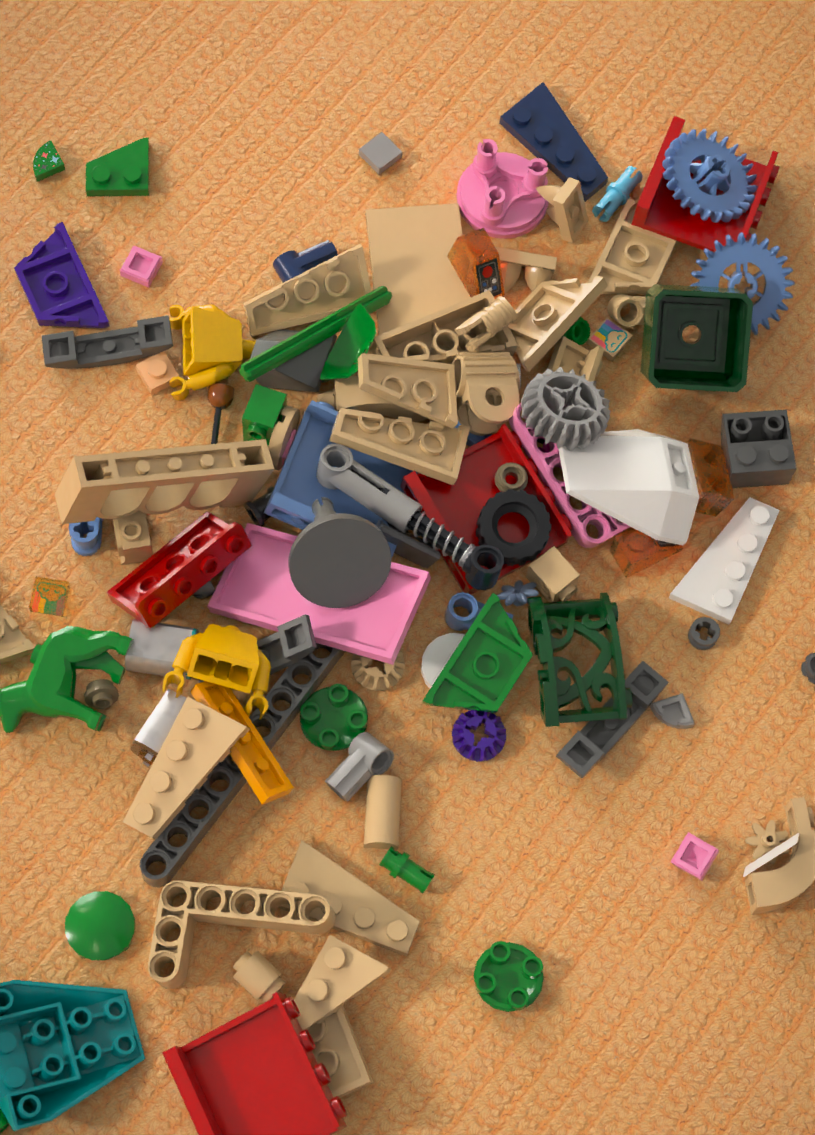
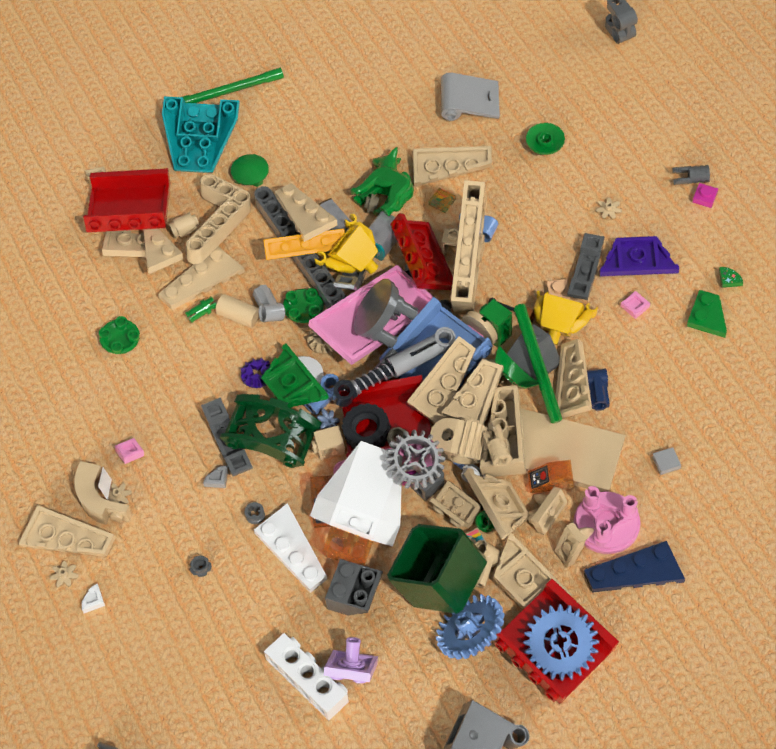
camera: 125 degrees right, 10 degrees down
(617, 193) = (577, 589): medium azure pin -> none

